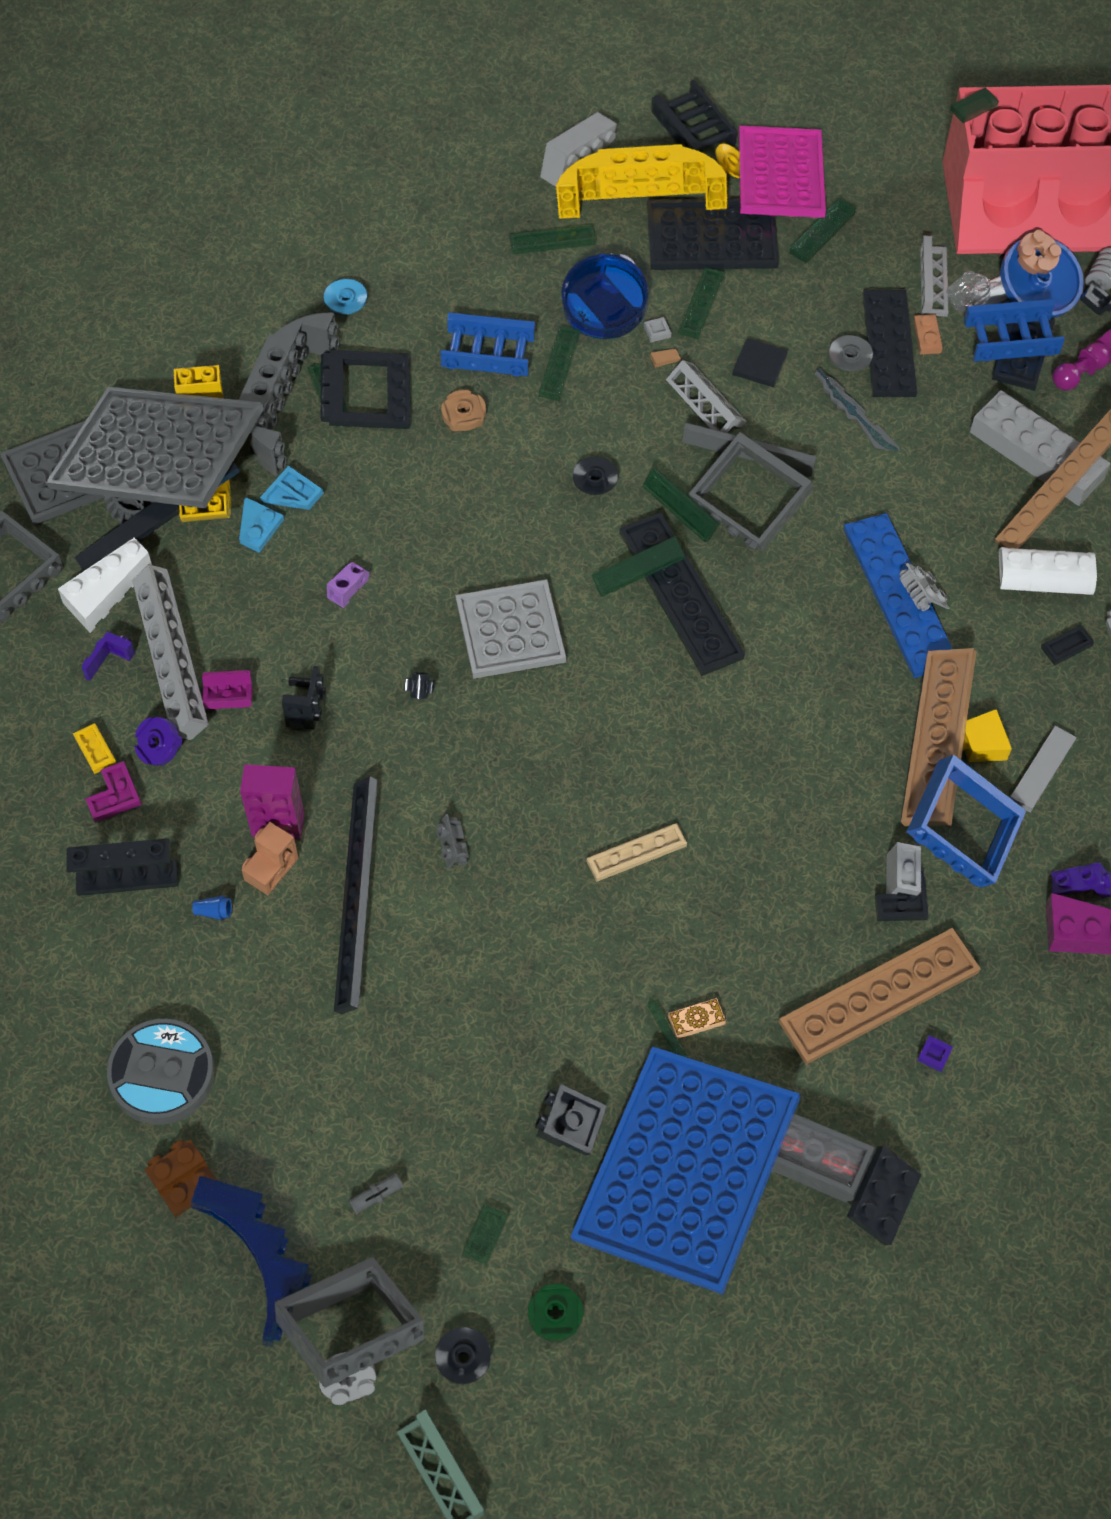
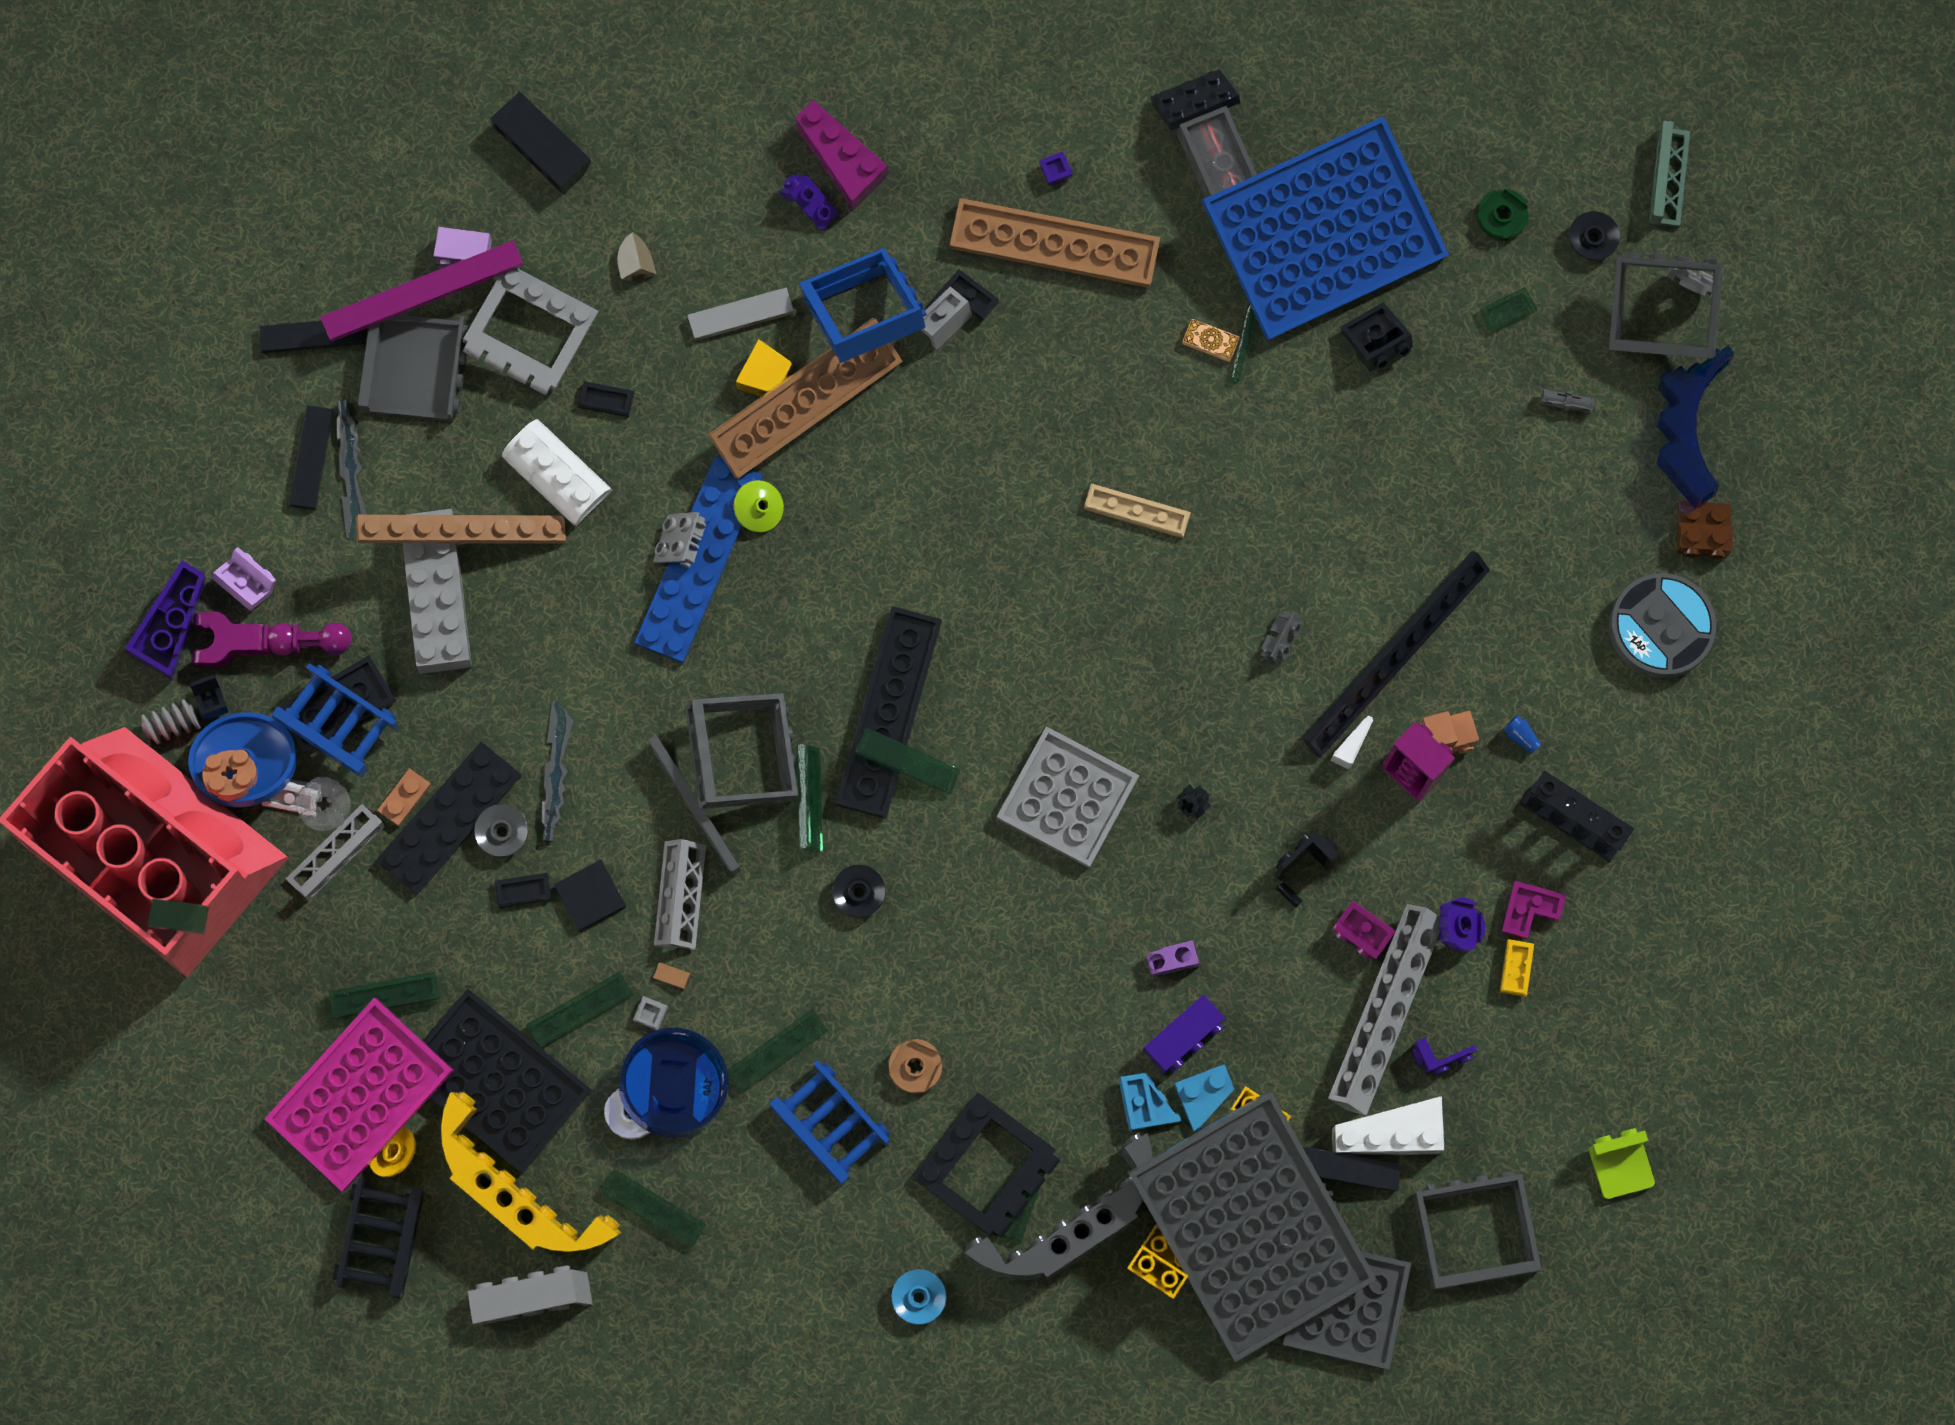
camera: 145 degrees left, 15 degrees up
(300, 544) = (1184, 1035): none -> dark purple brick
(336, 801) = (1350, 747): none -> white slope
(803, 338) = (523, 890): none -> black tile
(903, 658) = (747, 506): none -> lime dish

